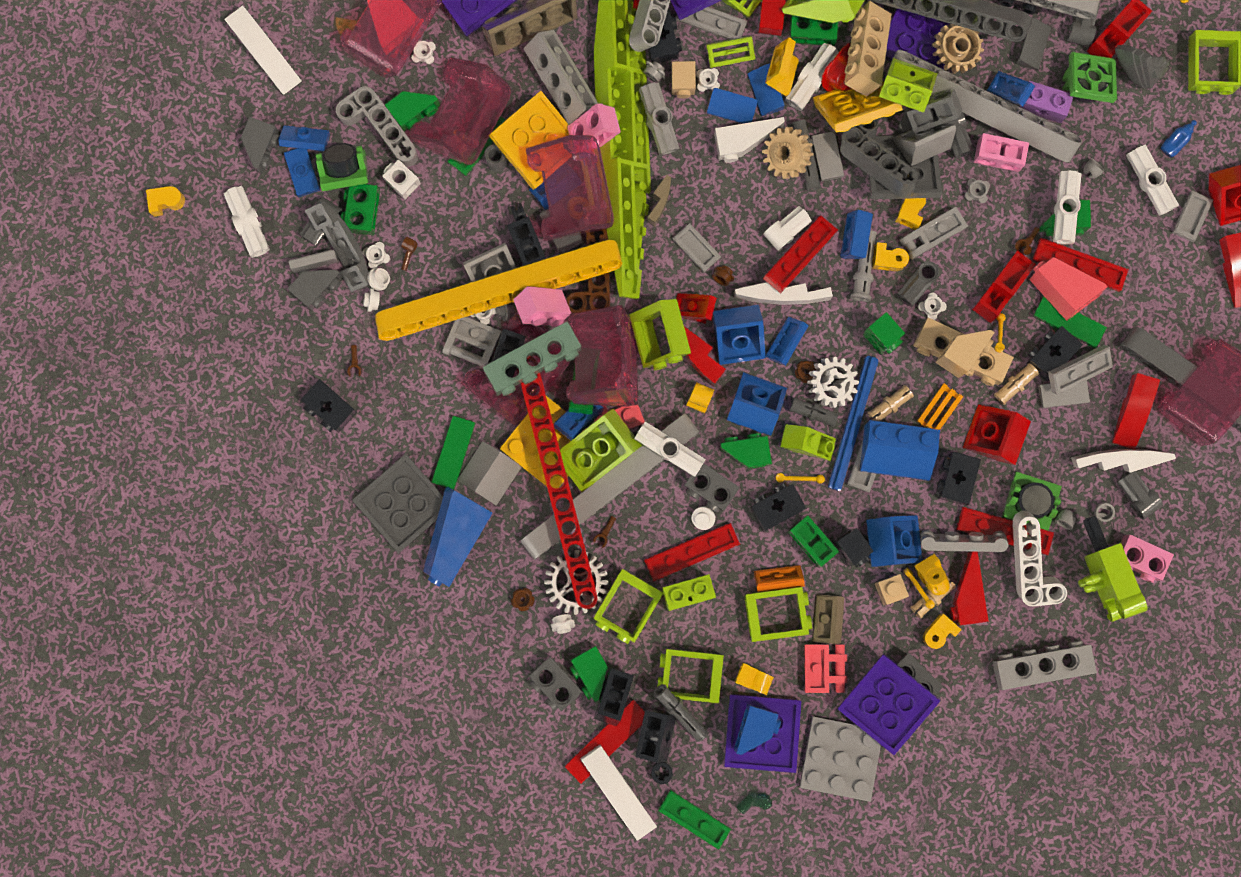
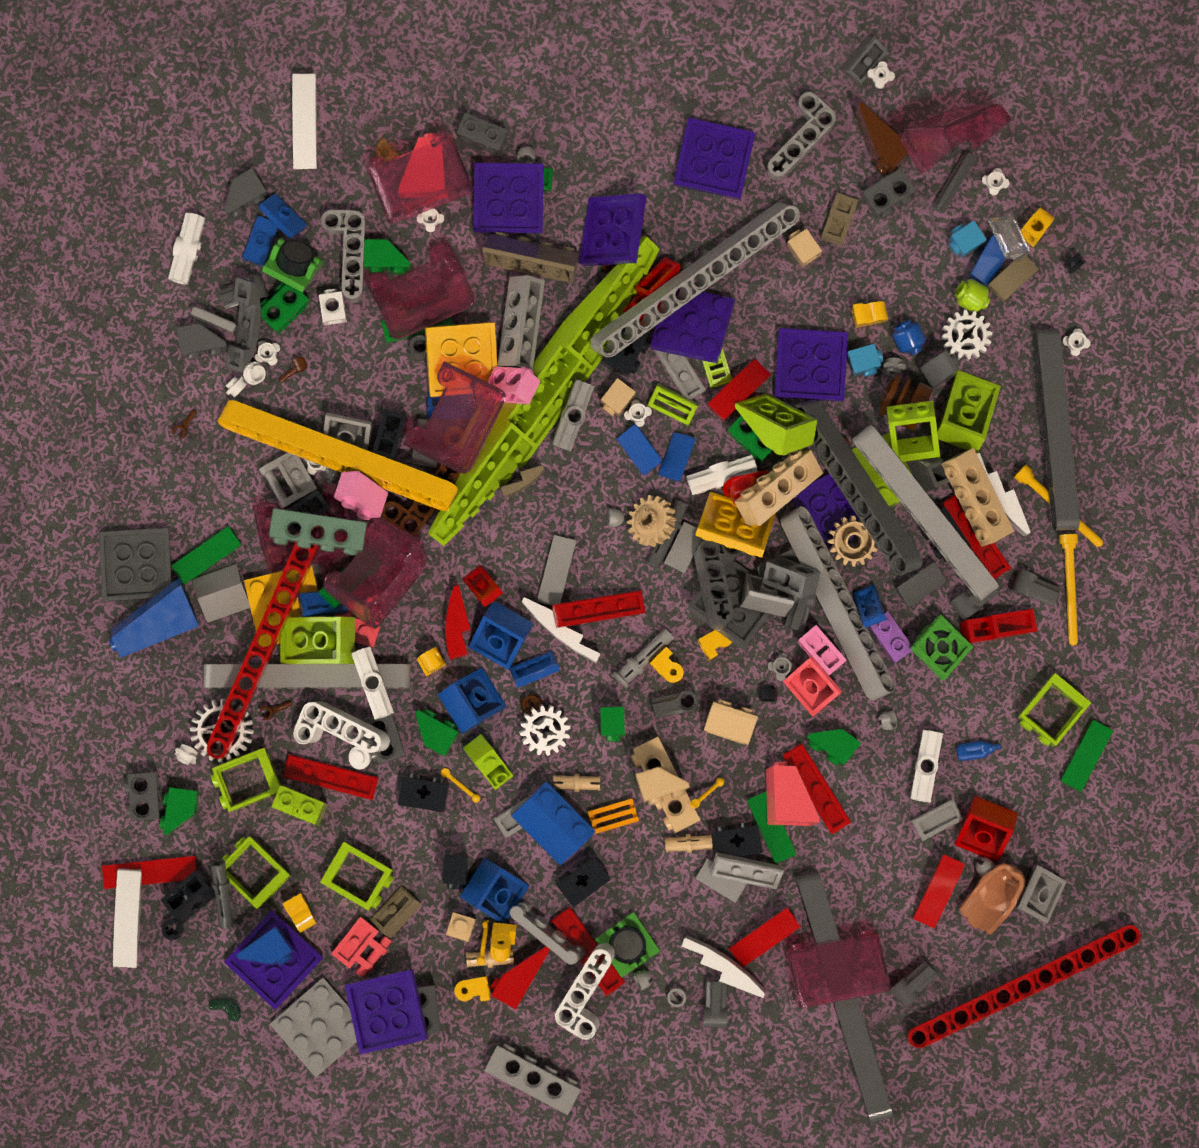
camera: 35 degrees right, 0 degrees up
(164, 198) = (136, 180): yellow leg -> none
(341, 410) = (140, 431): black brick -> none
(516, 600) = (164, 711): reddish brown plate -> none
(518, 212) = (404, 405): black bush -> none
(613, 697) = (180, 841): black brick -> none
(647, 339) = (426, 583): lime window -> none
(654, 71) = (600, 374): light grey plate -> none
(676, 506) = (344, 730): none -> white beam
(694, 819) = (169, 985): green tile -> none
(696, 248) = (523, 541): light grey tile -> none
(723, 275) = (526, 578): reddish brown plate -> none
(740, 139) = (626, 482): white slope -> none
(742, 251) = (556, 570): none -> light grey tile
(757, 174) = (614, 517): none -> light grey hinge
(779, 578) = (381, 850): orange tile -> none
(783, 67) = (702, 450): yellow panel -> none
(784, 231) = (600, 581): white piece -> none
(813, 541) = (429, 841): green brick -> none
(814, 412) = (511, 741): dark grey pin -> none
(853, 423) = (536, 774): blue axle -> none
(856, 235) = (656, 628): blue slope -> none
(908, 89) = (785, 527): lime window -> none
(932, 299) = (667, 726): white plate -> none
(934, 232) = (719, 674): light grey plate -> none
(975, 263) = (730, 722): none -> tan slope
(984, 219) = (768, 693): none -> black hinge
(997, 434) = (641, 870): red slope -> none
(1004, 287) = (740, 759): red slope -> none
(1015, 185) = (812, 686): none -> coral slope
(1027, 242) = (784, 744): reddish brown hand -> none
(1066, 221) = (823, 745): white piece -> none
(1111, 576) = (637, 1046): lime piece -> none
(1141, 66) = (991, 668): dark grey hair -> none
(1144, 553) = (682, 1053): bright pink brick -> none

